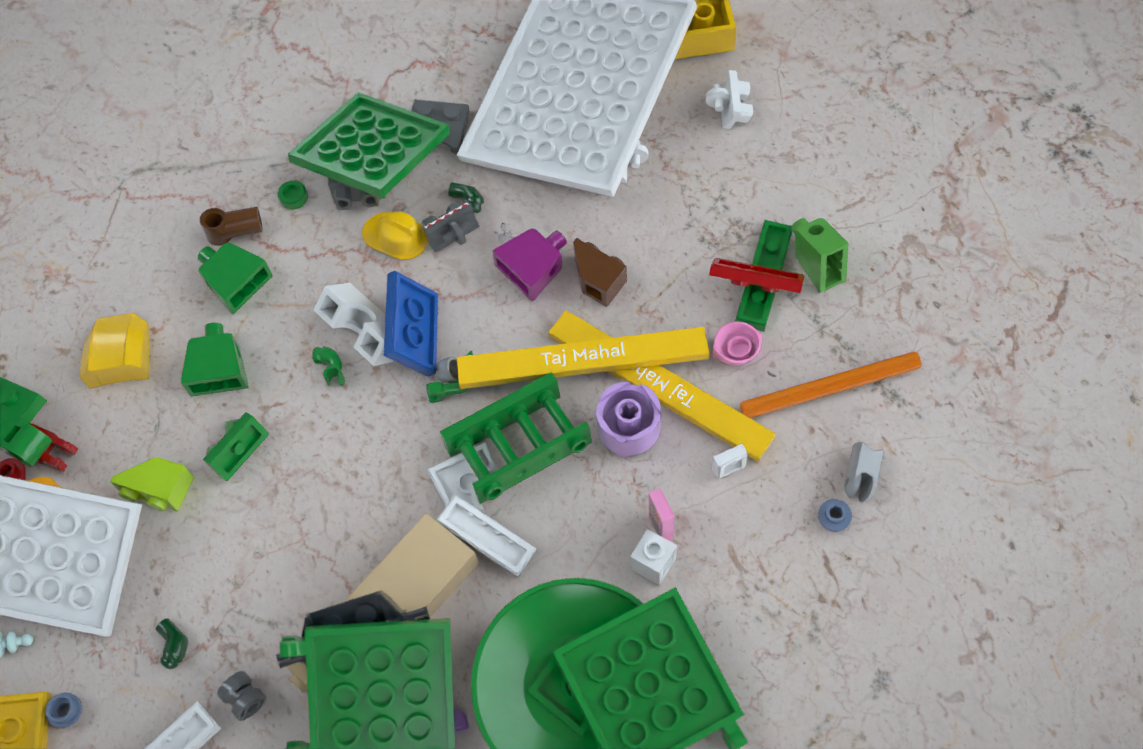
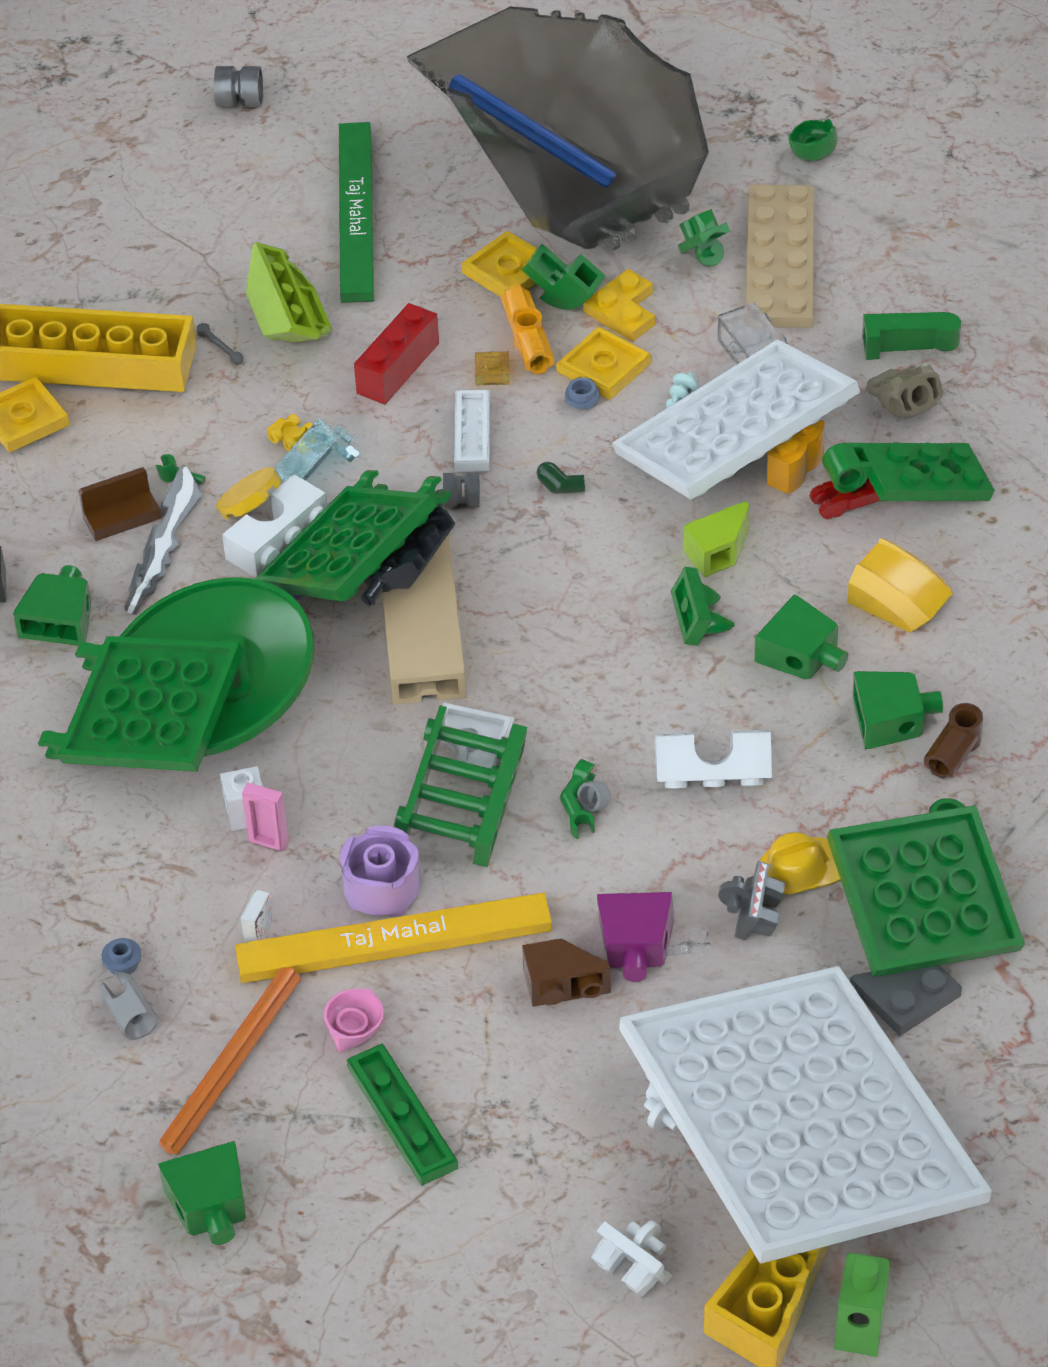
camera: 130 degrees right, 15 degrees down
(329, 357) = (714, 727): green arm -> none
(411, 324) = (666, 785): blue tile -> none
(467, 193) = (779, 949): dark green arm -> none
(486, 536) = (401, 710): white plate -> none
(582, 357) = (479, 891): yellow tile -> none
(768, 278) = (396, 1078): red plate -> none
(821, 252) = (361, 1154): bright green torso -> none
(920, 308) = (206, 1191): none -> green torso

